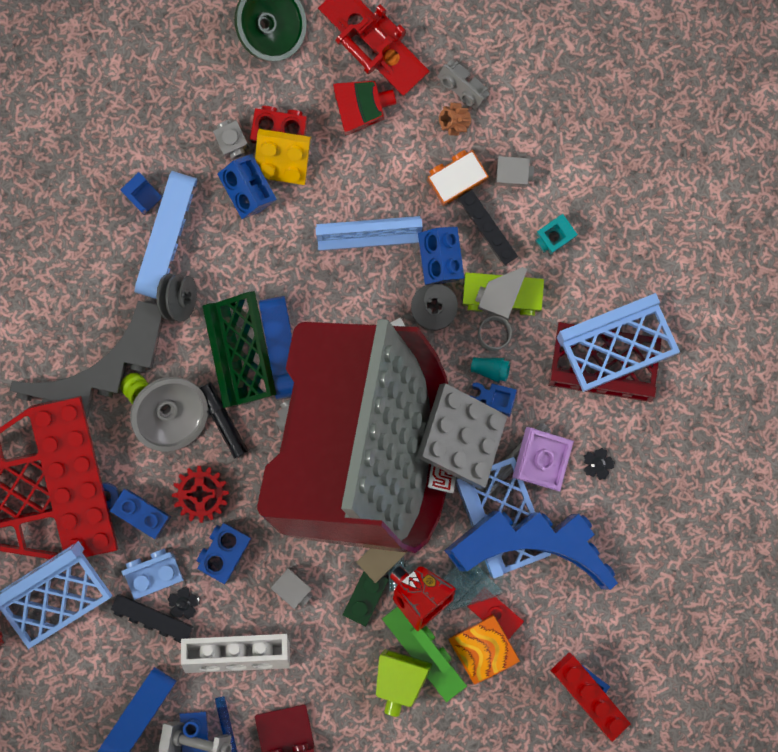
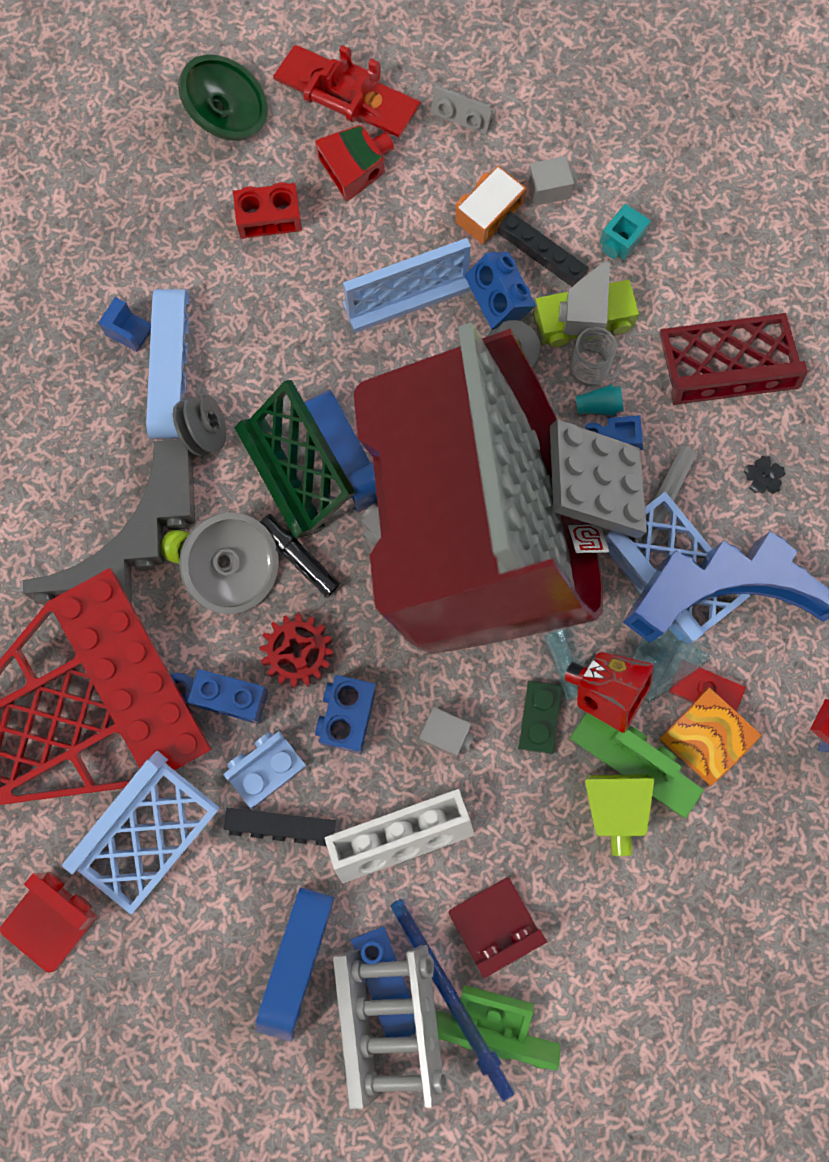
camera: 15 degrees left, 10 degrees down
(183, 603) = (314, 795): black plant -> none
(231, 139) = (214, 235): light grey brick -> none
(246, 186) = (248, 279): blue brick -> none
(282, 156) = (279, 235): yellow plate -> none
(379, 562) = (548, 658): dark tan sticker -> none
(454, 119) = (466, 143): nougat gear -> none
(543, 459) = (699, 485): lavender plate -> none
(603, 325) = (718, 310): light blue fence -> none

